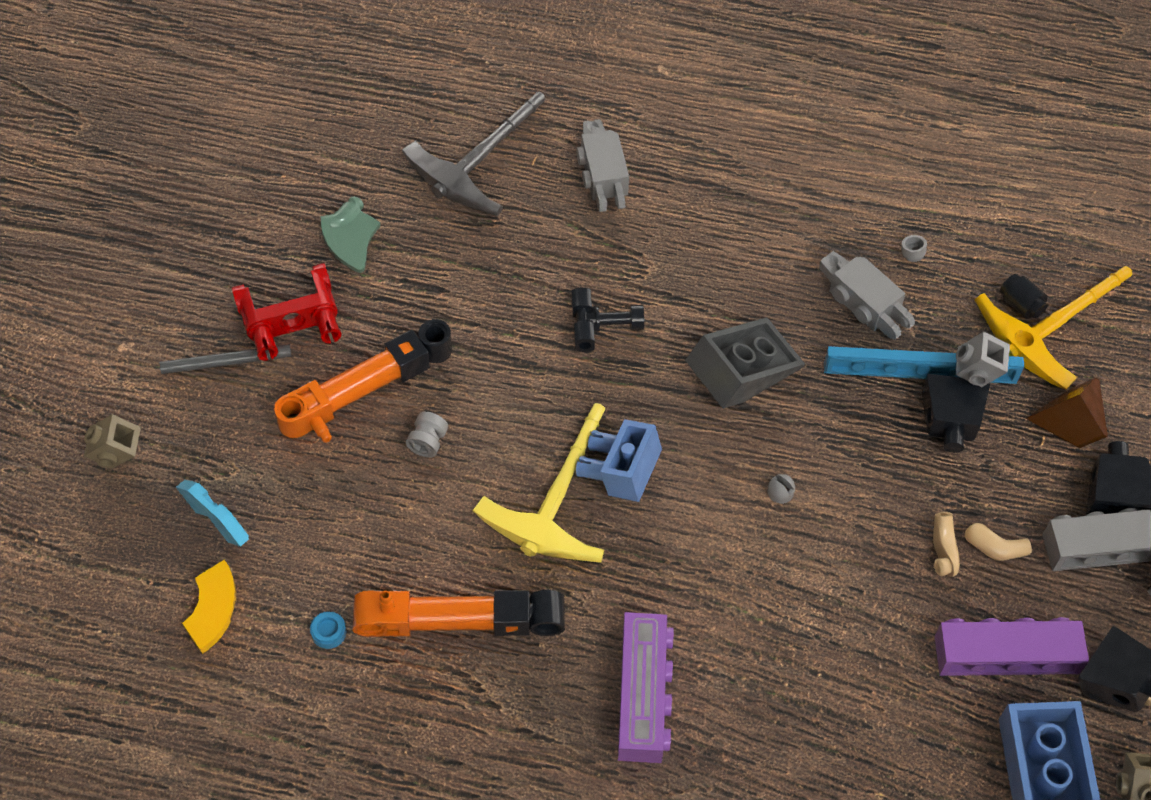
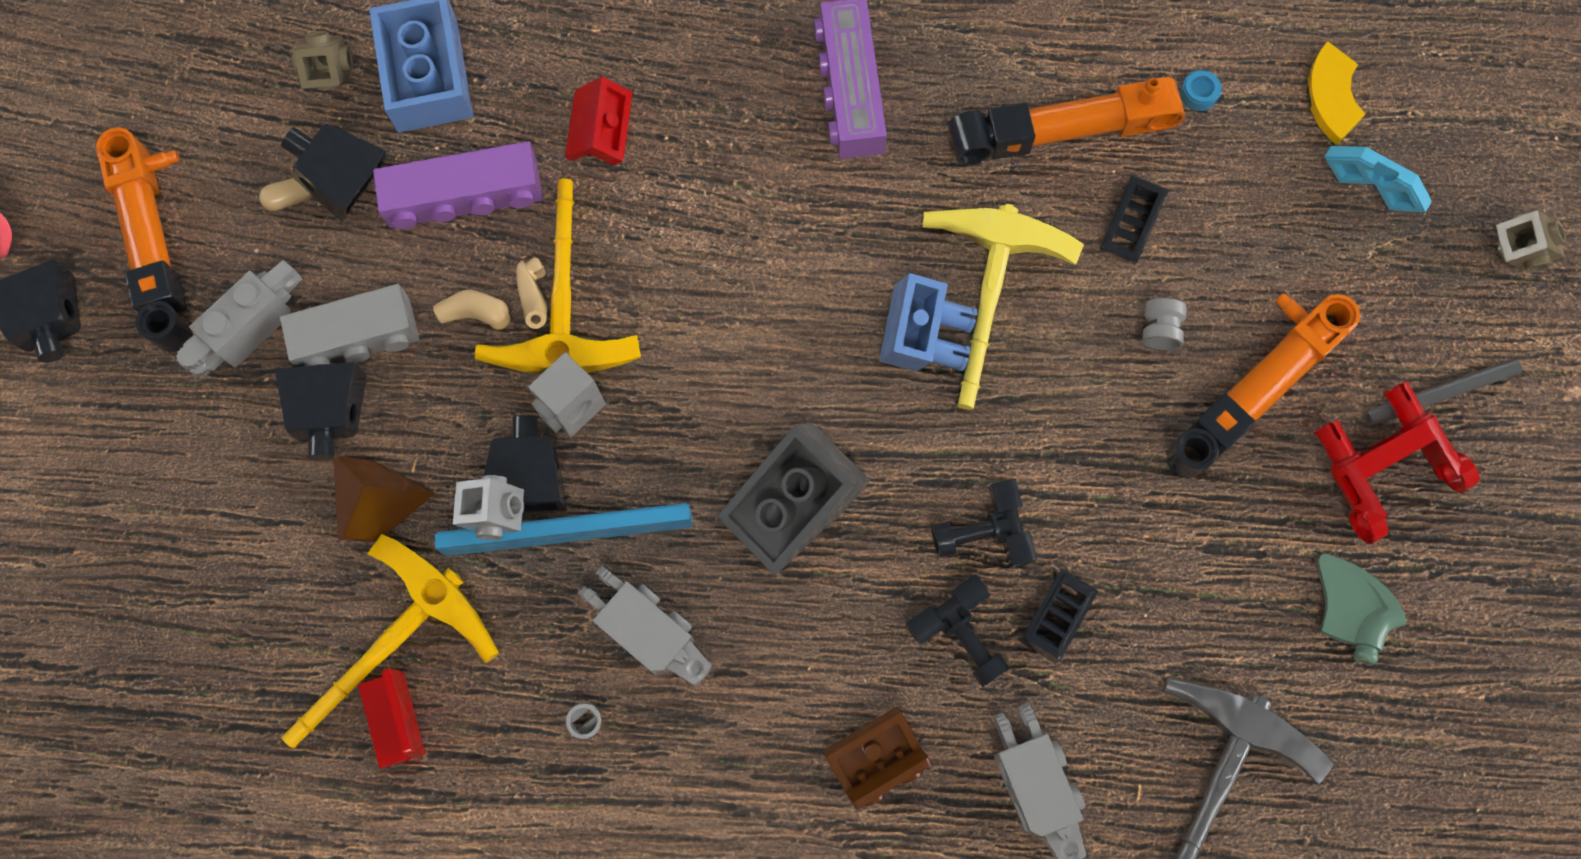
camera: 175 degrees right, 15 degrees up
(411, 544) = (1145, 190): none -> black slope
(576, 244) = (1041, 644): none -> black slope
(638, 266) = (953, 618): none -> black bar
(710, 193) = (877, 758): none -> reddish brown bracket
(777, 490) = (725, 344): light grey hinge -> none
(881, 688) = (599, 121): none -> red panel
(919, 445) = (566, 396): none -> light grey brick
(924, 498) = (540, 353): none -> yellow piece
(1024, 296) = (431, 664): black brick -> none
(1052, 271) = (391, 719): none -> red panel

